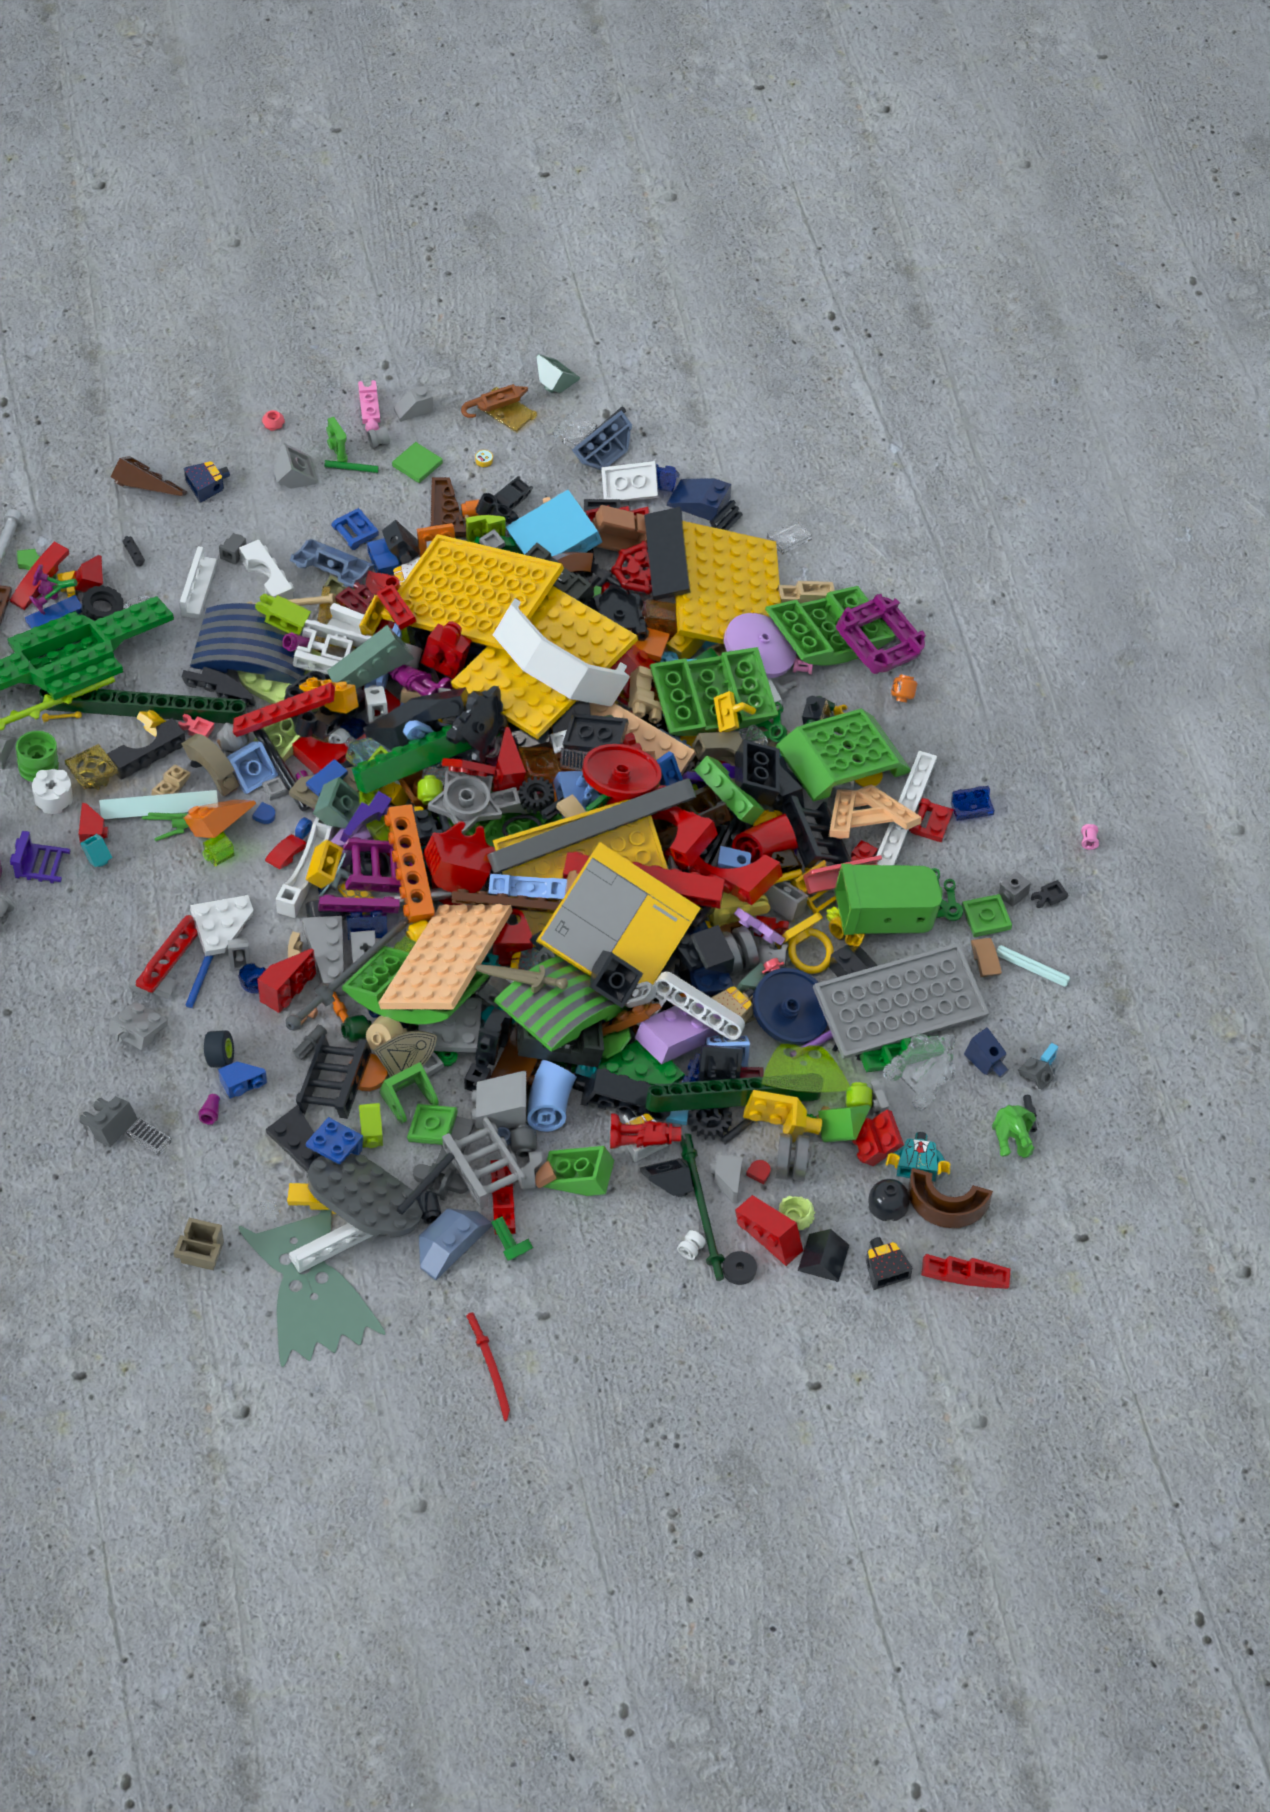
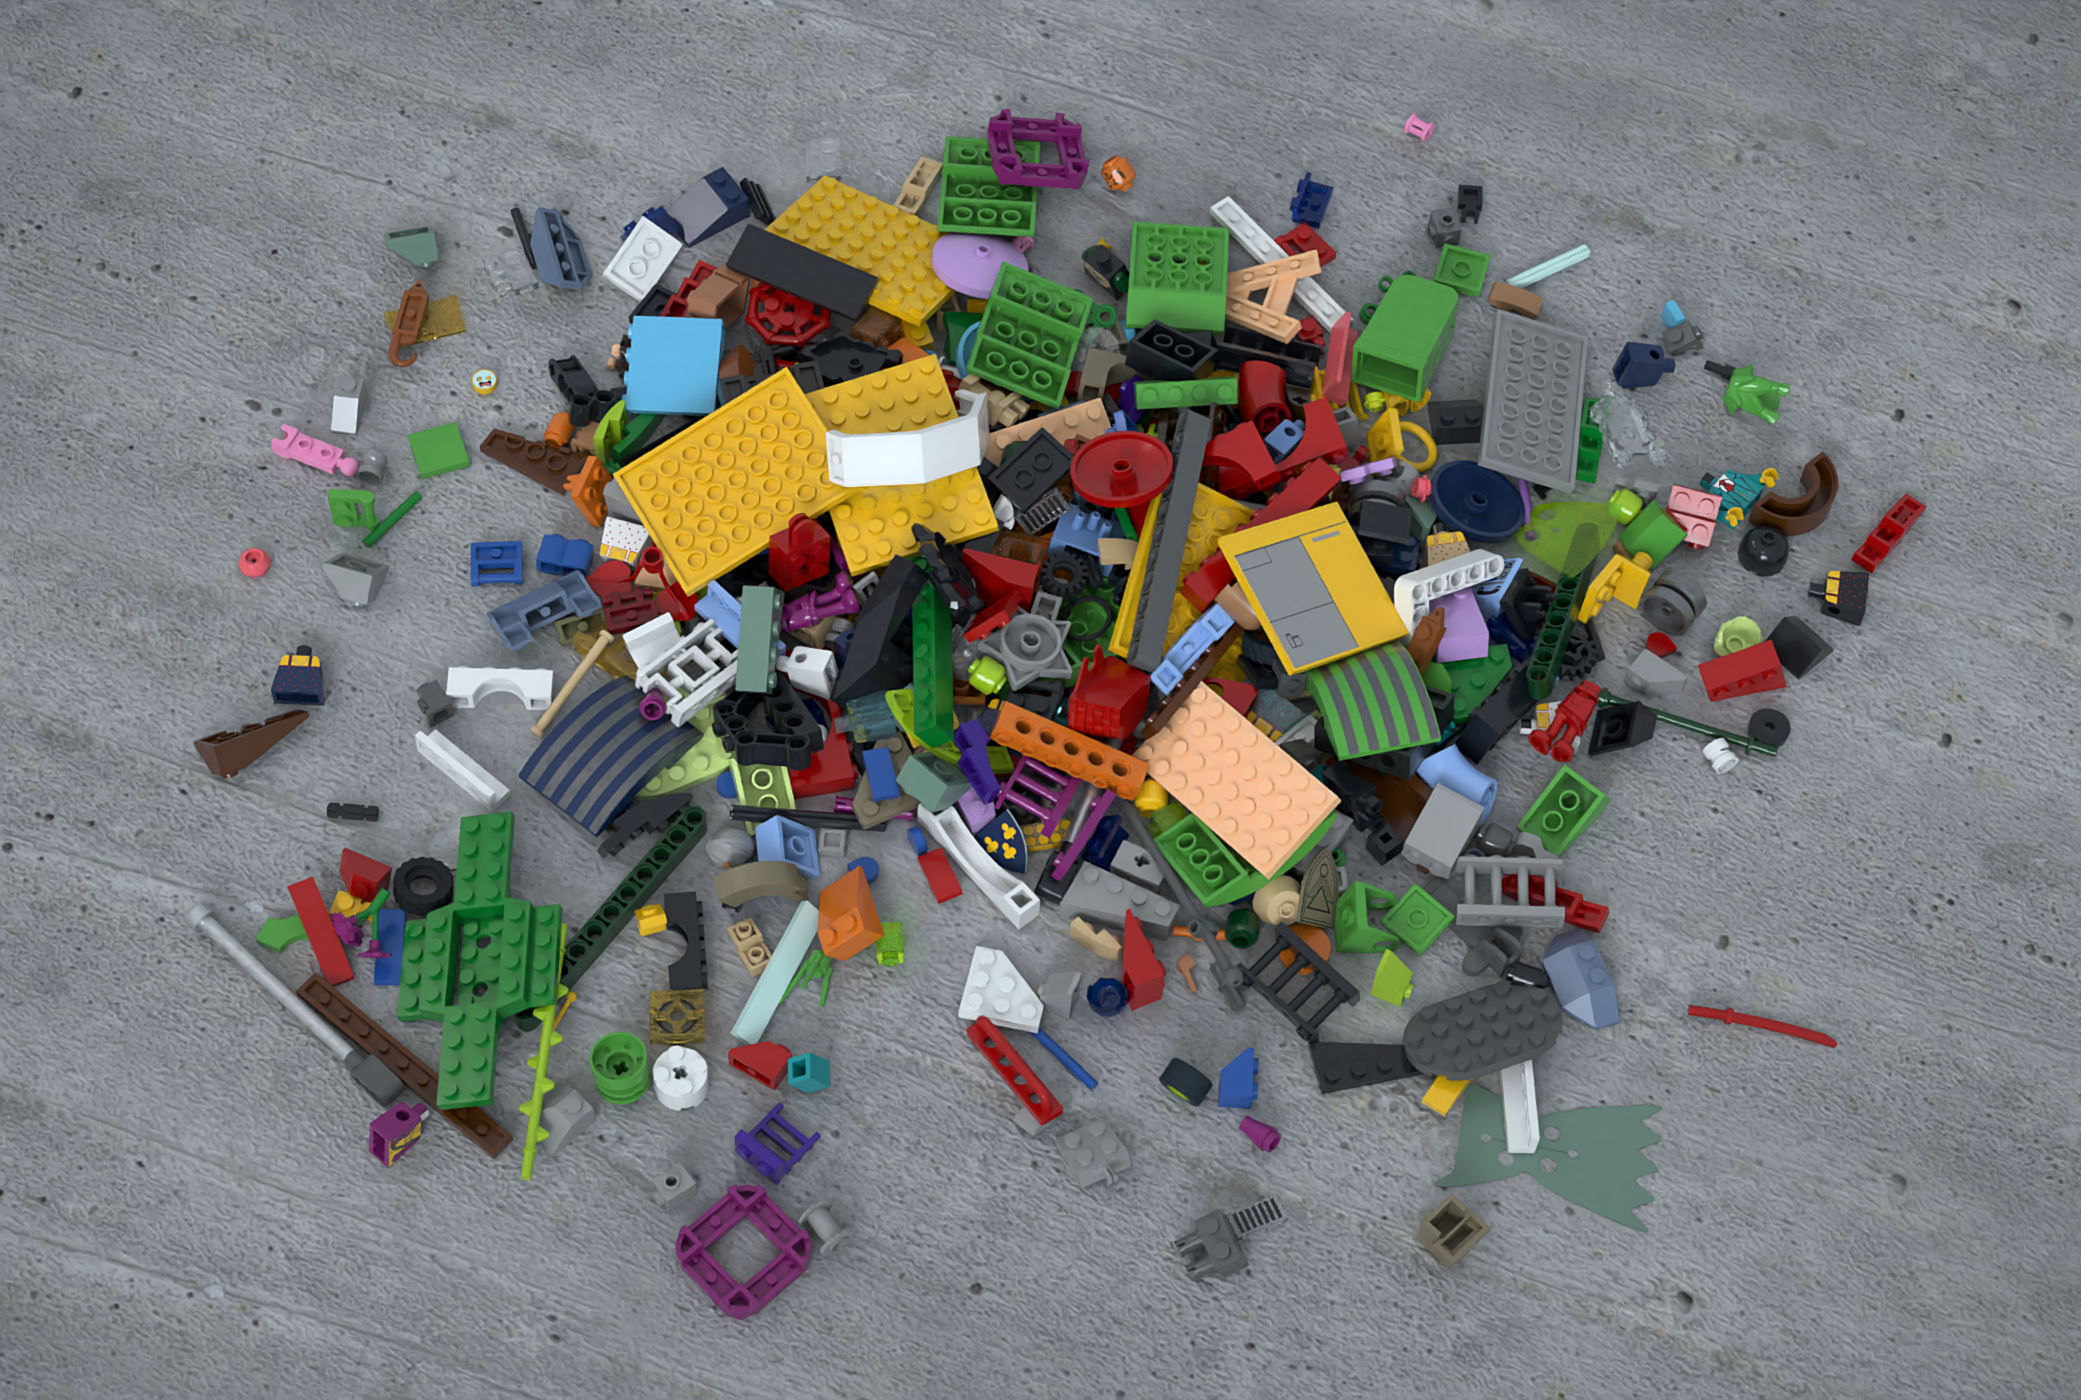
camera: 60 degrees left, 5 degrees up
(197, 726) = (687, 875): coral plate -> none
(283, 613) = (610, 692): lime hinge -> none
(284, 709) = (767, 762): red plate -> none
(324, 864) = (1000, 841): yellow brick -> none
(335, 1141) = (1394, 1024): blue bracket -> none
(345, 694) = (777, 702): light orange slope -> none
(372, 617) = (670, 603): yellow slope -> none
(396, 607) = (698, 569): red plate -> none
(404, 547) = (572, 524): black torso -> none
(416, 730) = (905, 640): light blue plate -> none
(425, 1183) = (1513, 960): black bar -> none
(492, 539) = (639, 434): light grey plate -> none
(512, 1249) = (1631, 921): green piece -> none
(536, 979) = (1334, 710): dark tan sword -> none
(545, 1175) = (1554, 842): nougat tile -> none
(614, 978) = (1380, 629): black slope -> none
(642, 994) = (1411, 620): light grey plate -> none
(727, 711) = (1067, 339): yellow plate -> none

